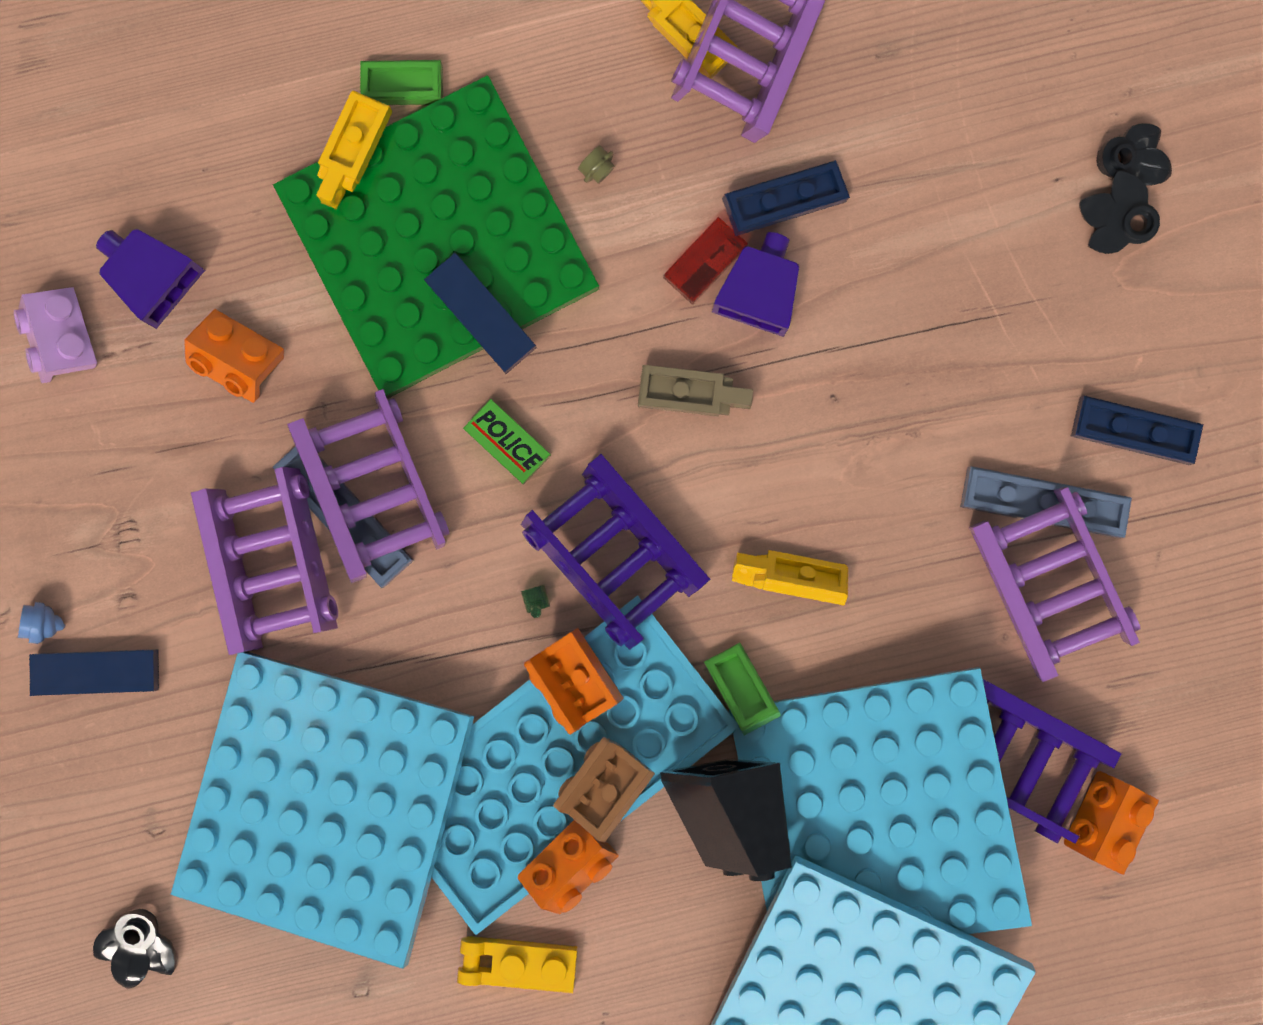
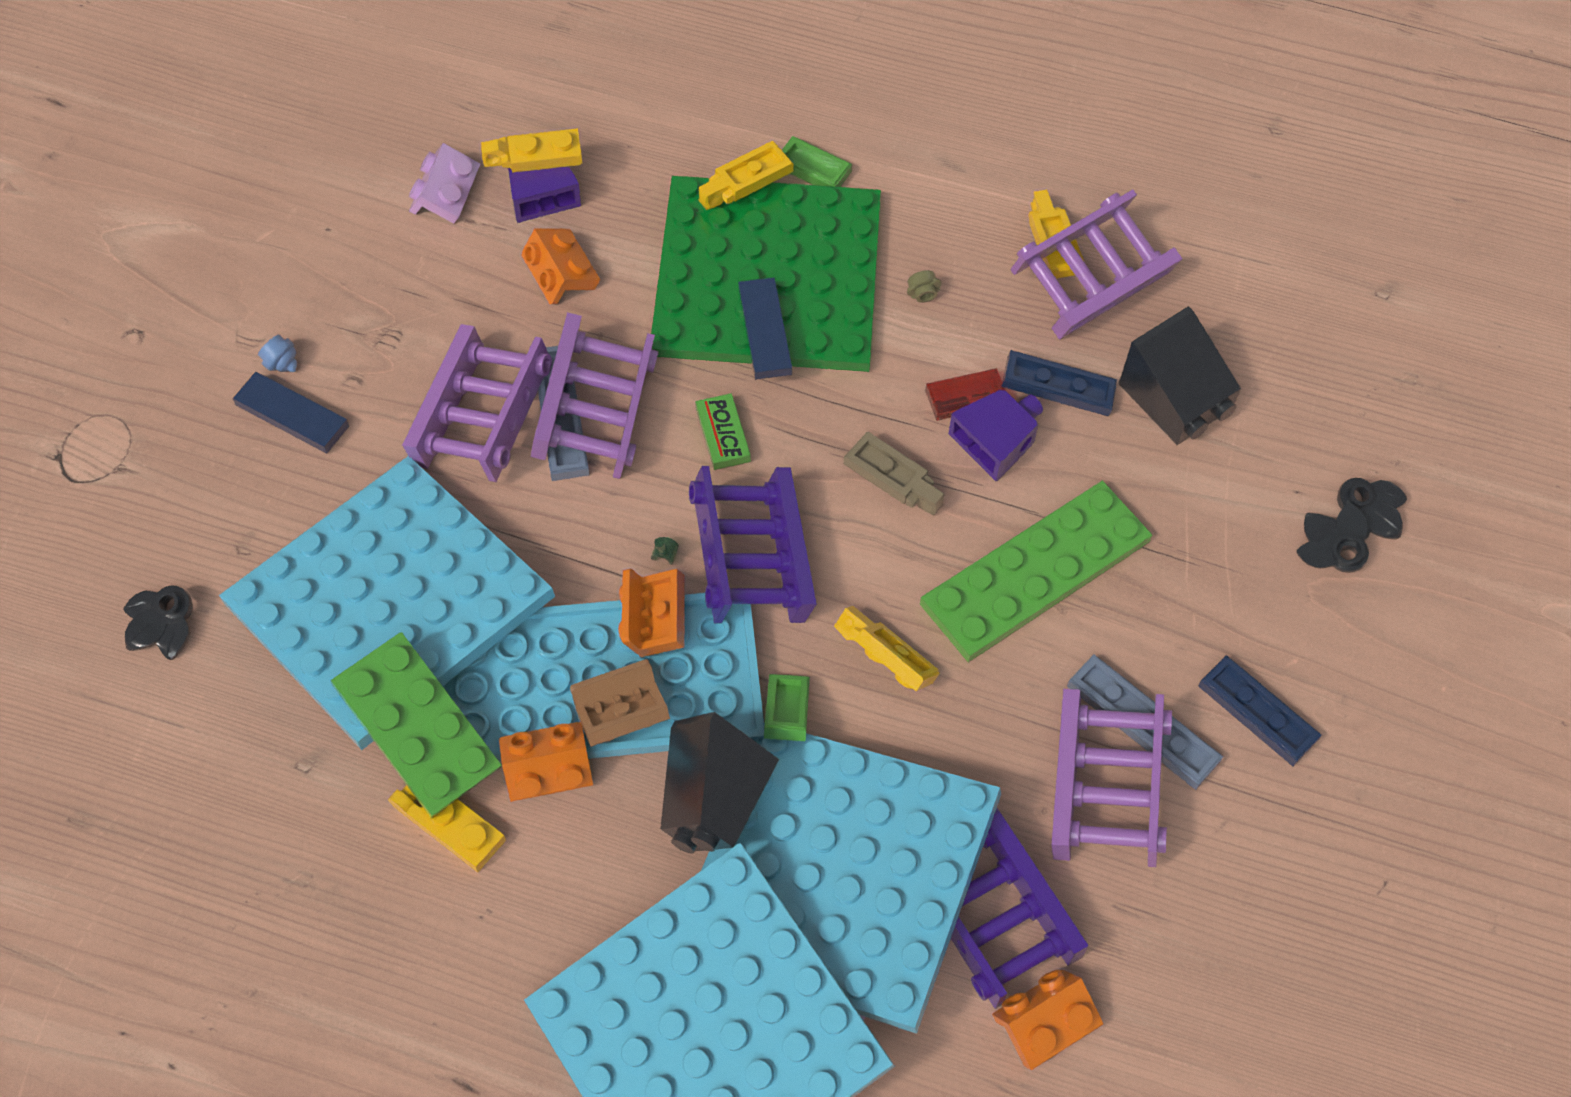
camera: 30 degrees right, 25 degrees down
(122, 251) = (533, 151): none -> yellow hinge
(441, 923) = (416, 724): none -> bright green plate
(873, 409) = (1035, 570): none -> bright green plate
(901, 129) = (1179, 377): none -> black slope

